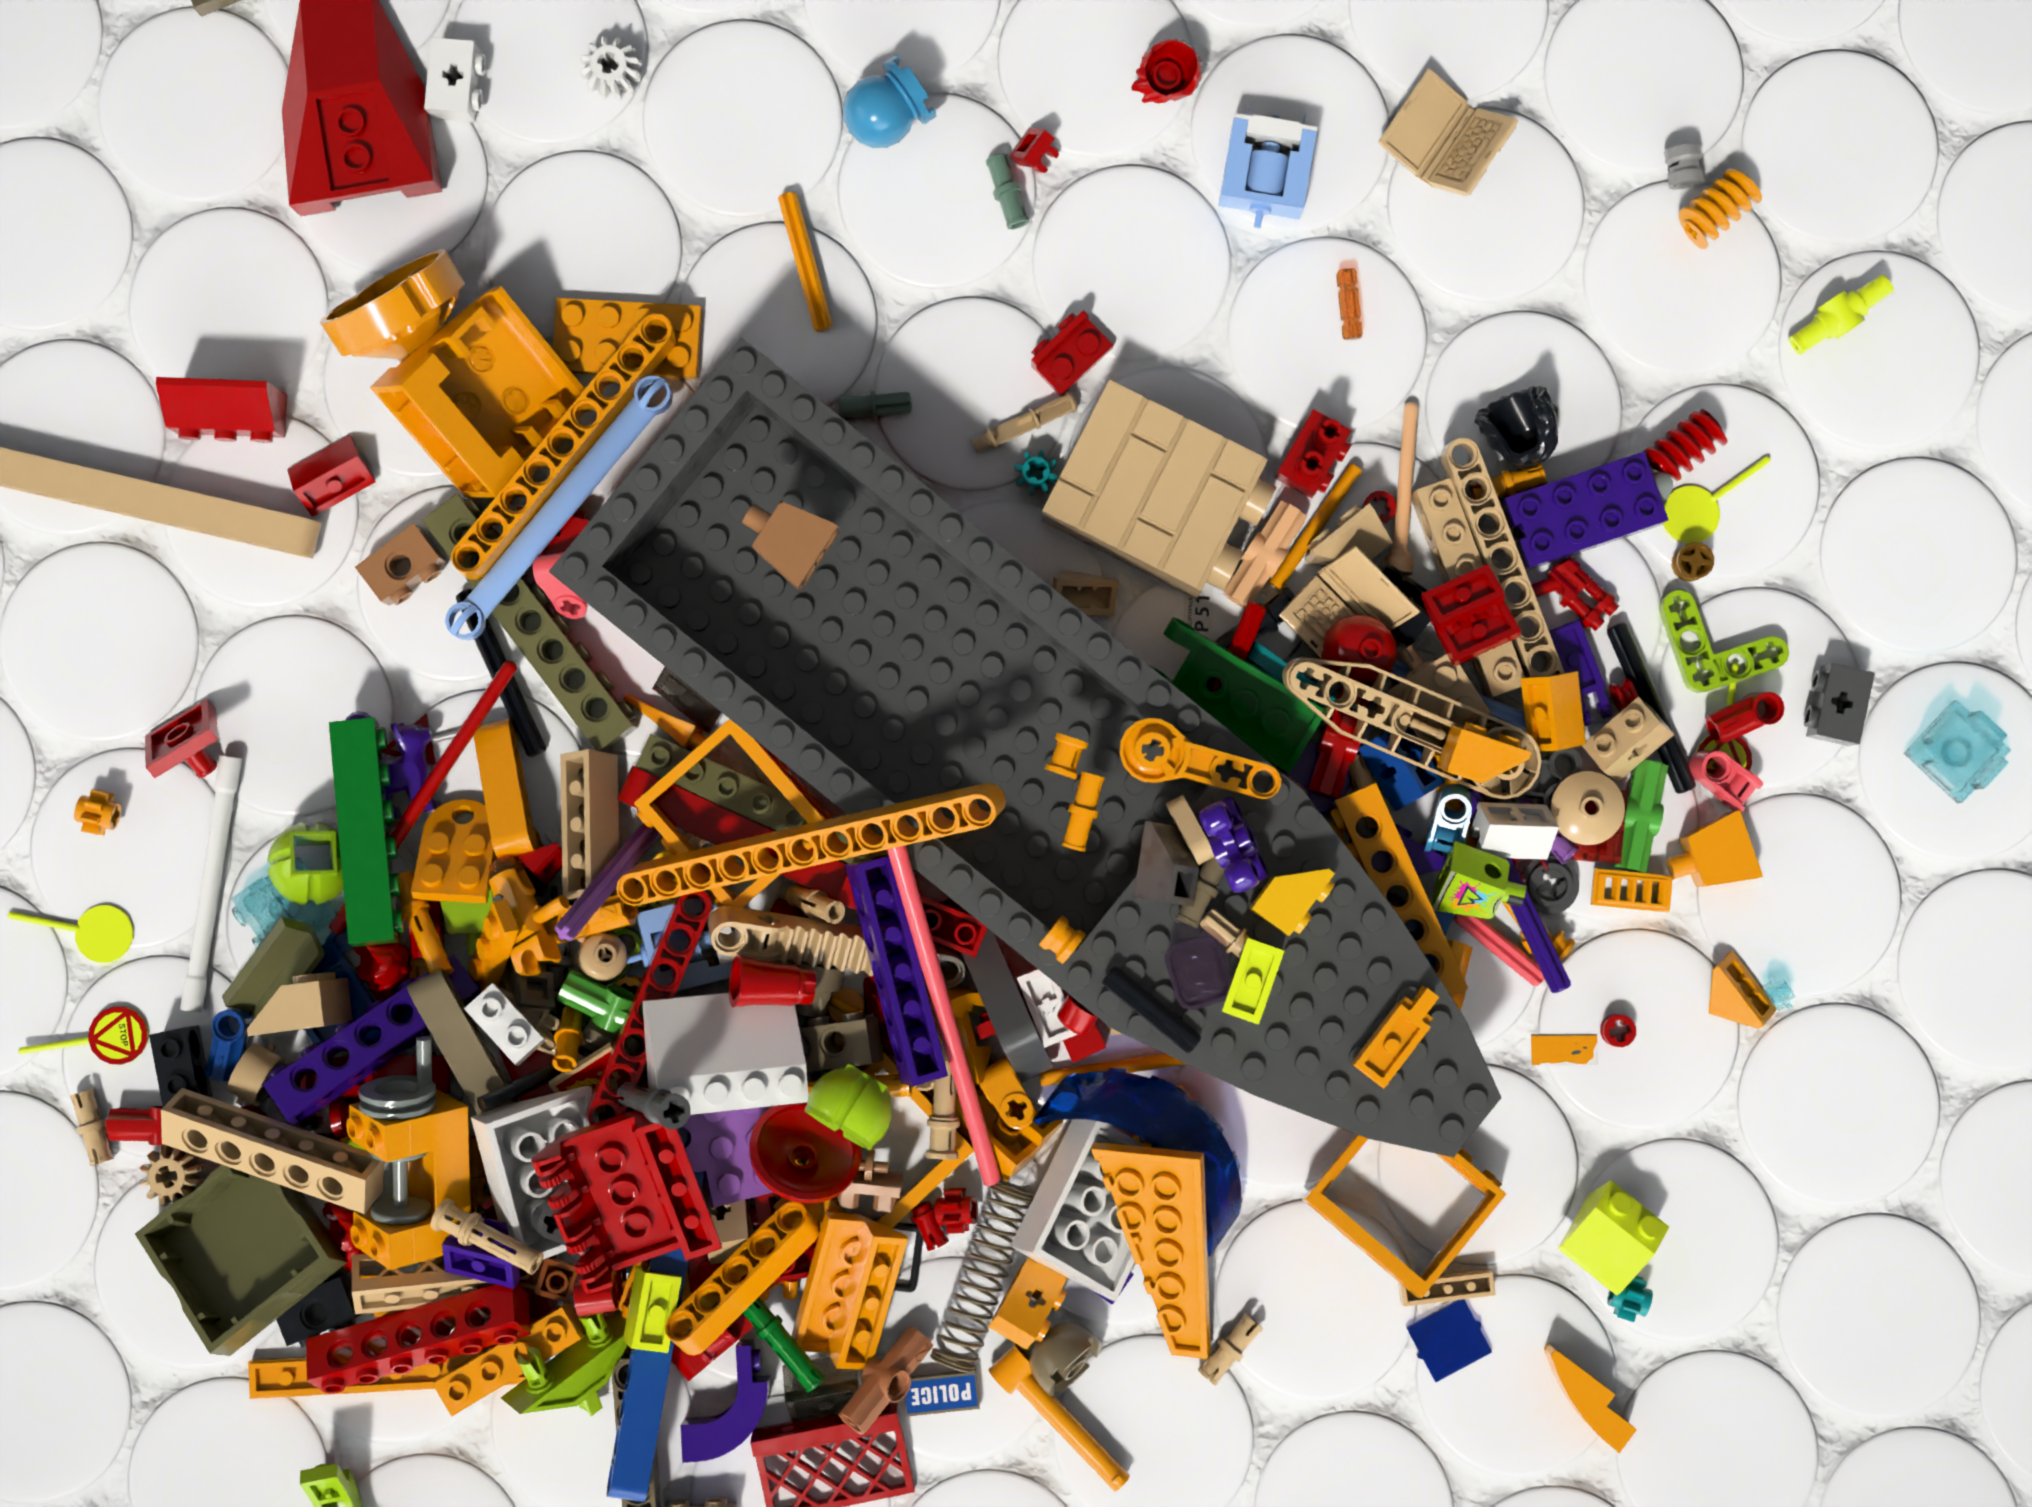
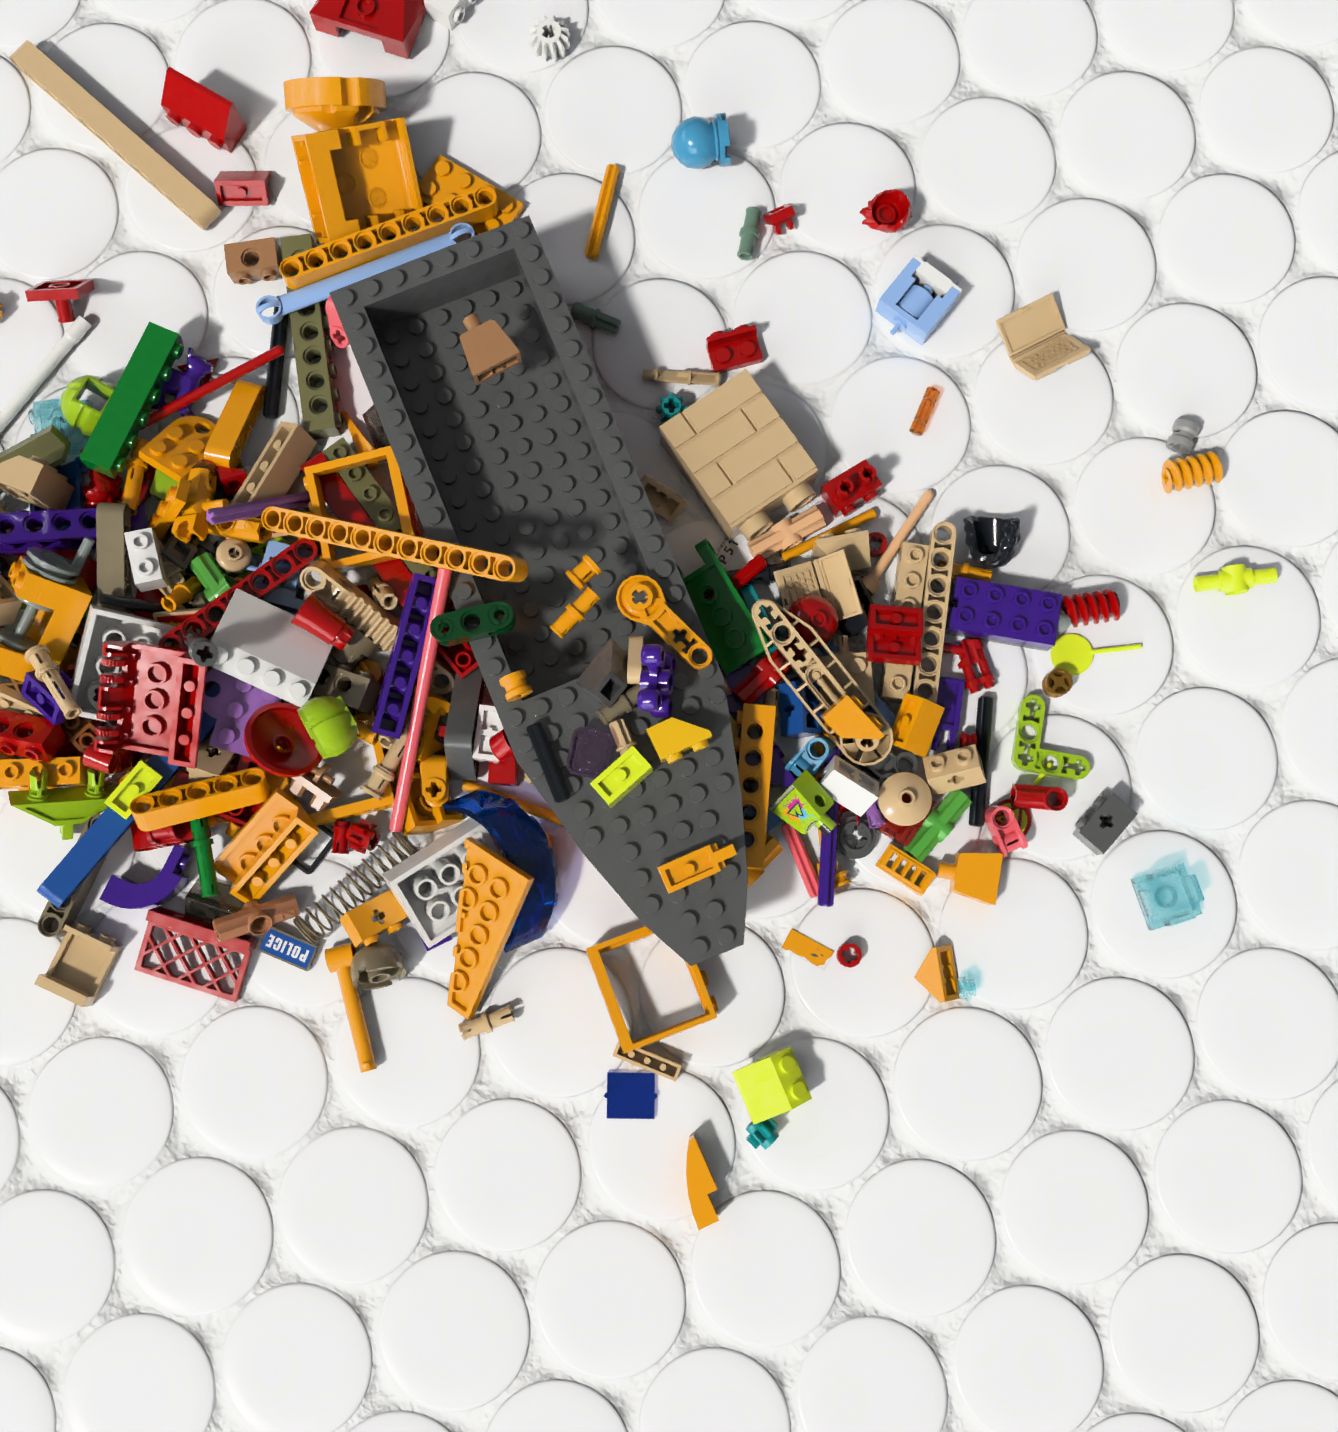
camera: 25 degrees right, 5 degrees down
(949, 902) = (458, 620): none -> dark green piece

